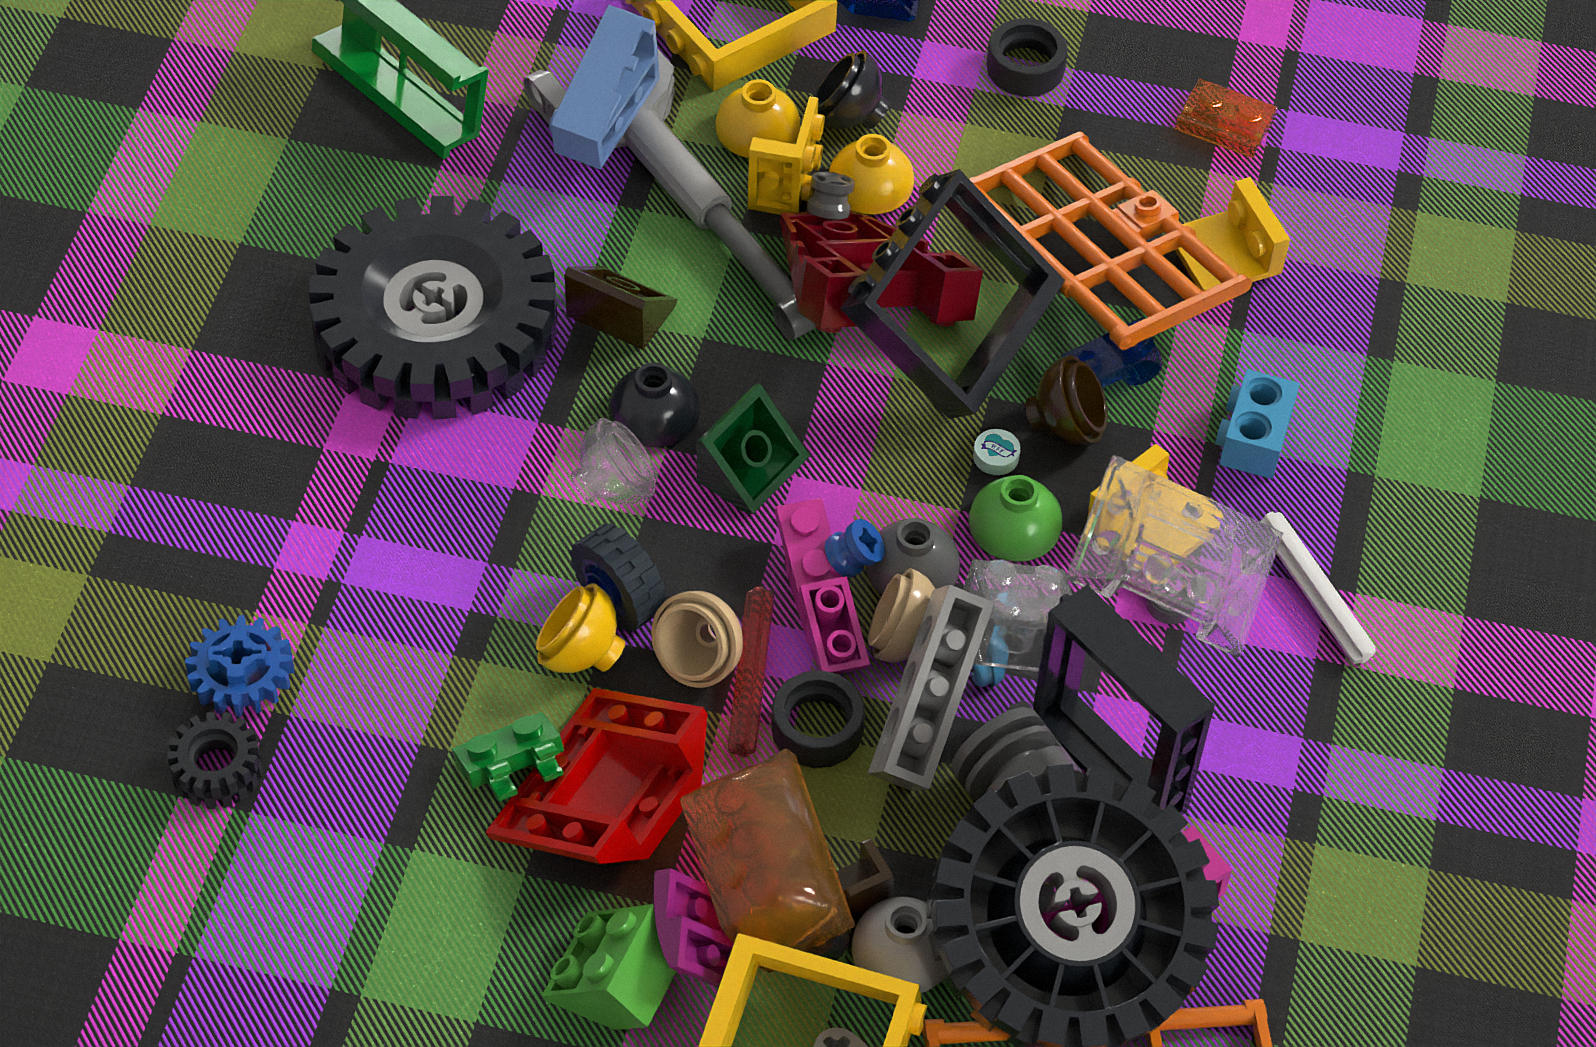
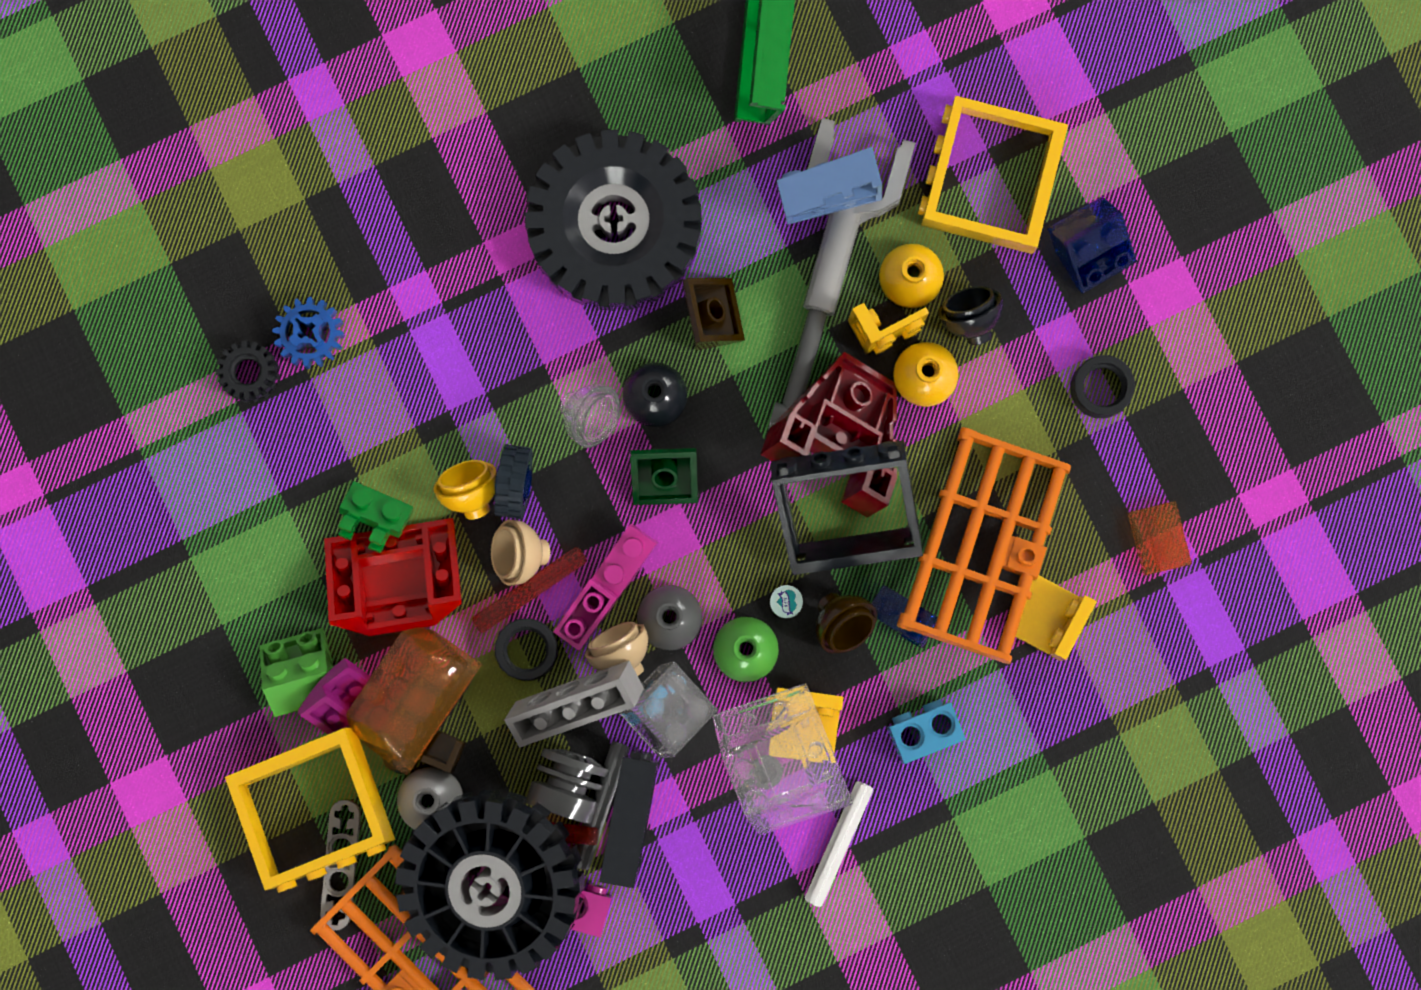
camera: 50 degrees right, 30 degrees up
(830, 195) = (886, 360): dark grey wheel -> none
(854, 548) = (636, 579): blue wheel -> none

